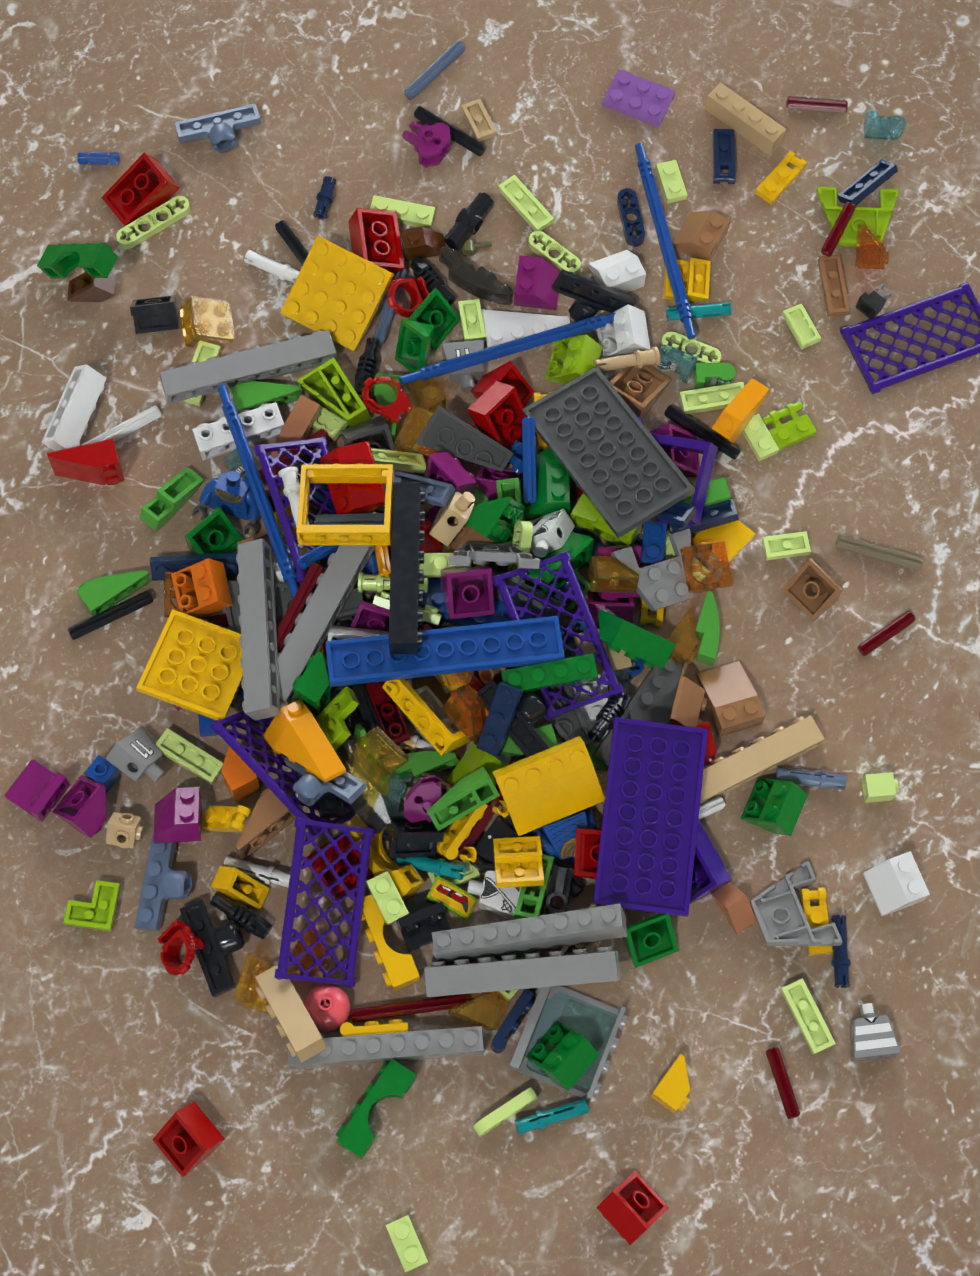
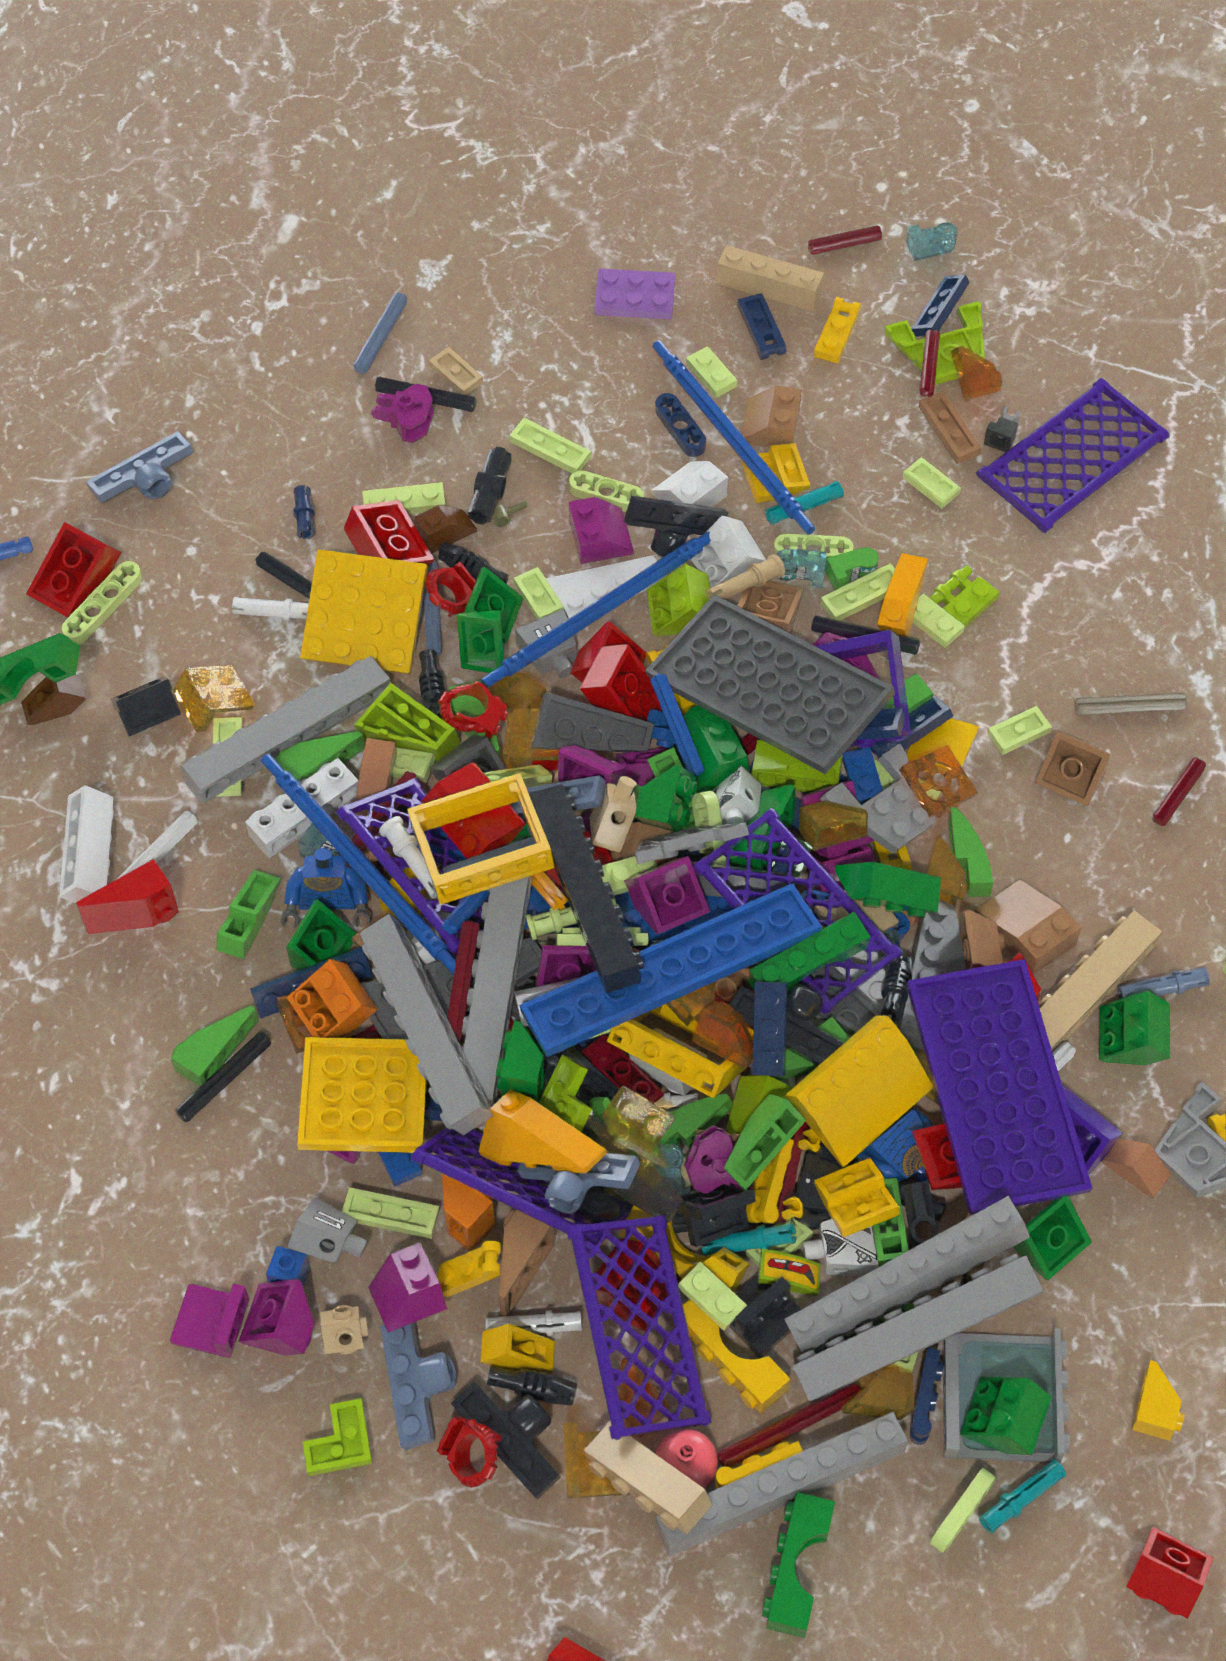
camera: 15 degrees left, 10 degrees down
(478, 283) = (527, 551): clear smoke slope -> none

